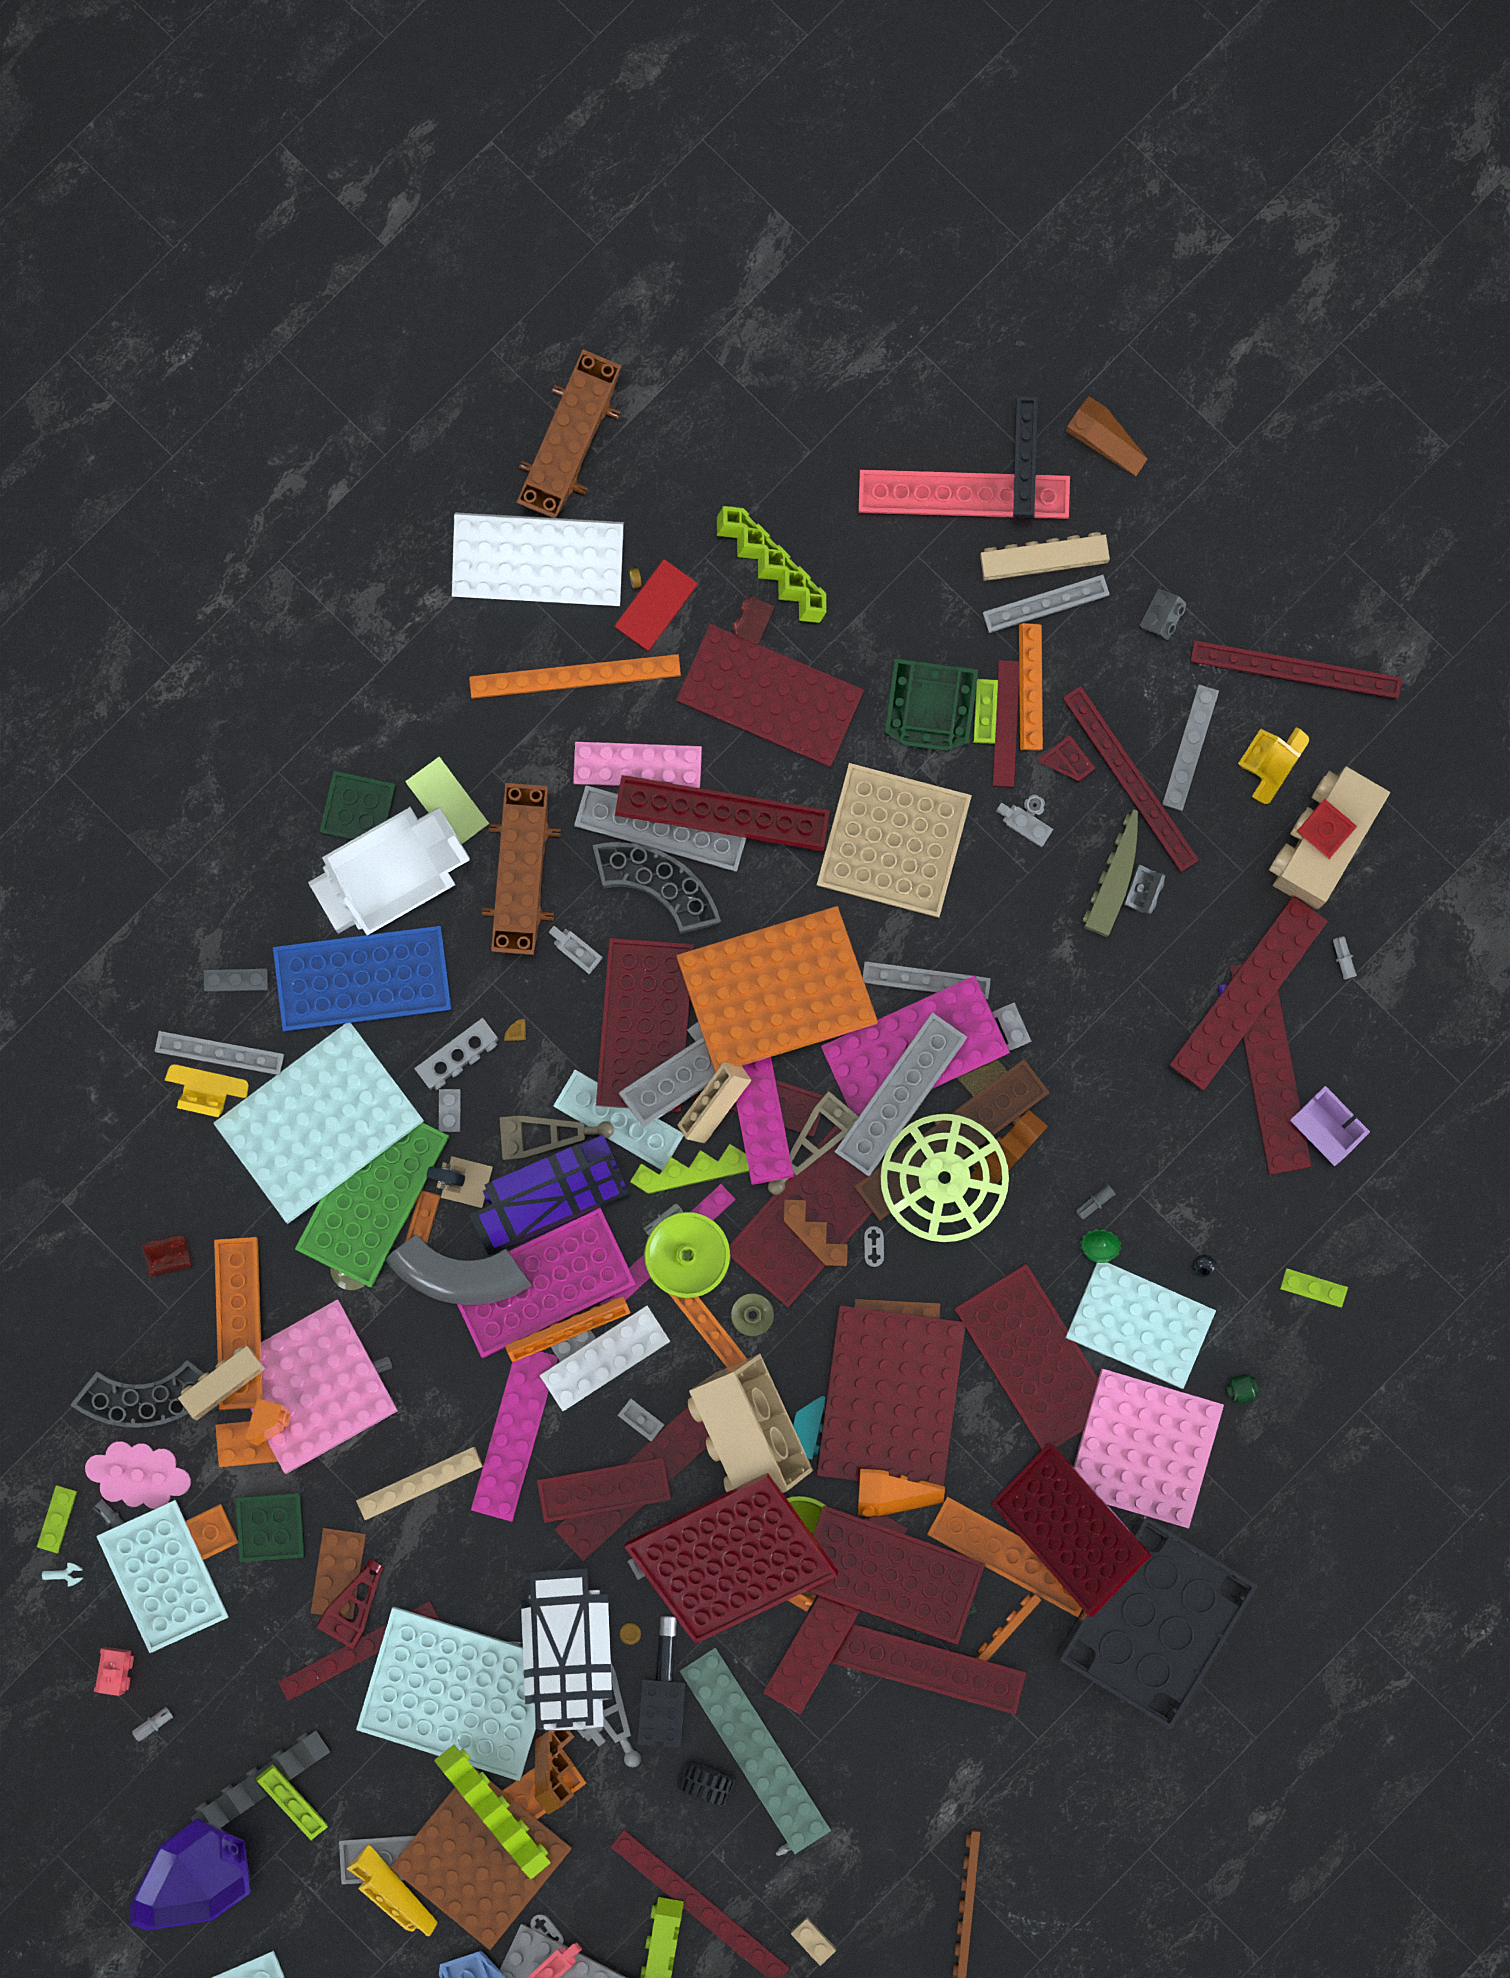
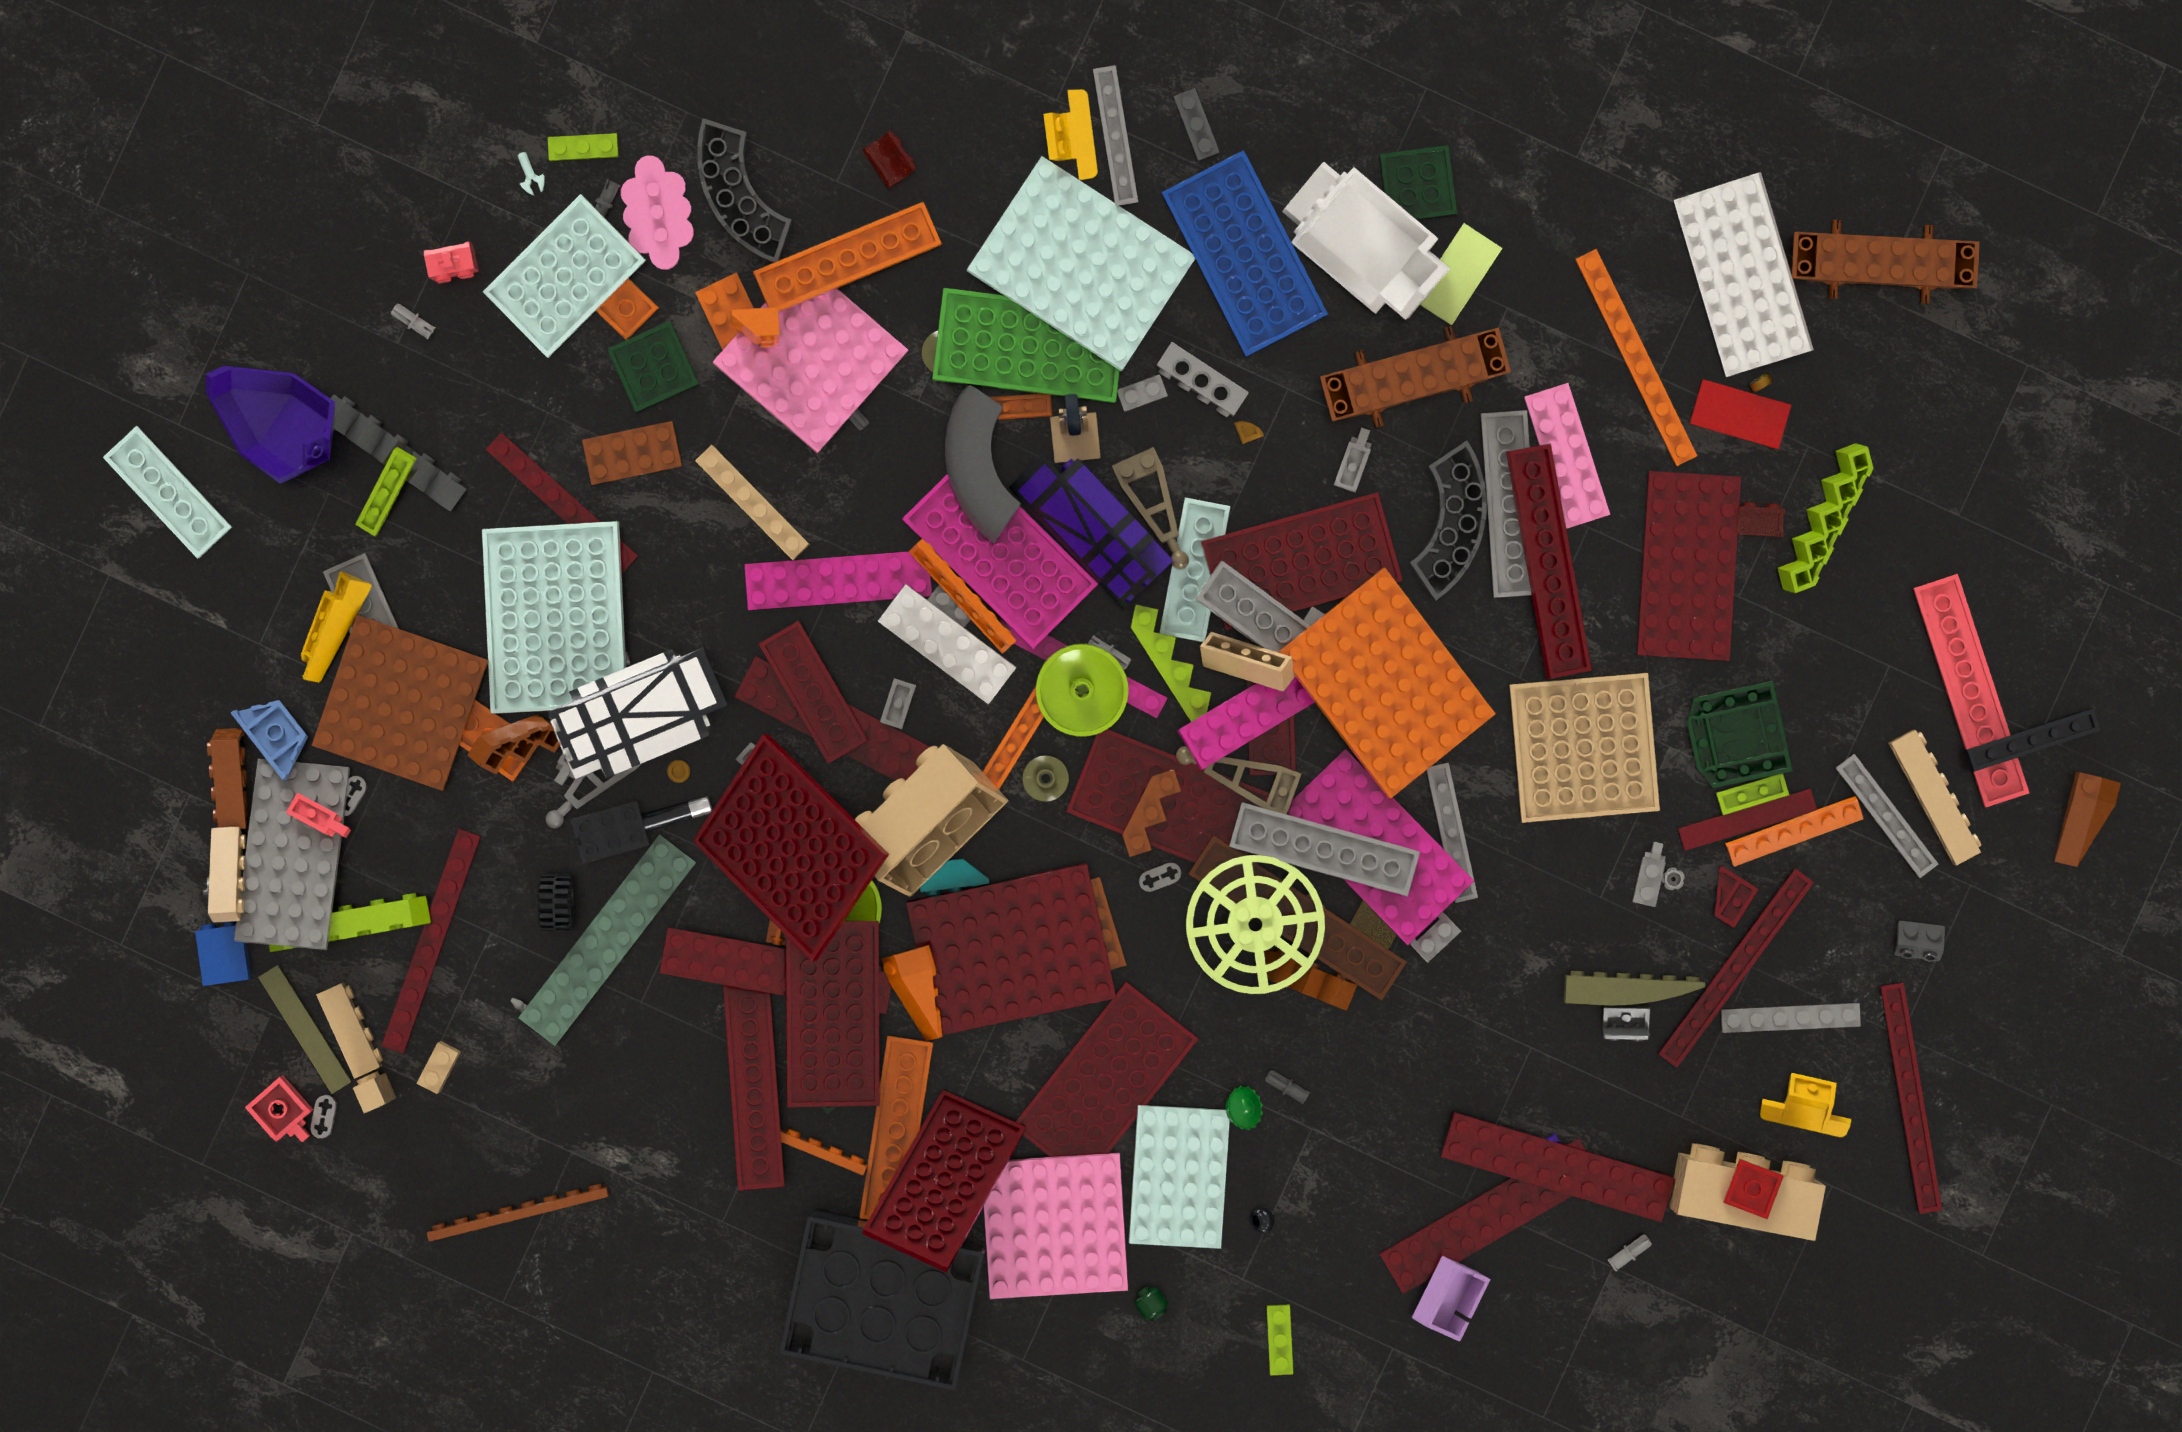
camera: 70 degrees right, 5 degrees up
(221, 1383) = (780, 264): tan brick -> none
(338, 1627) = (577, 476): dark red plate -> none
(493, 1811) = (450, 698): lime brick -> none

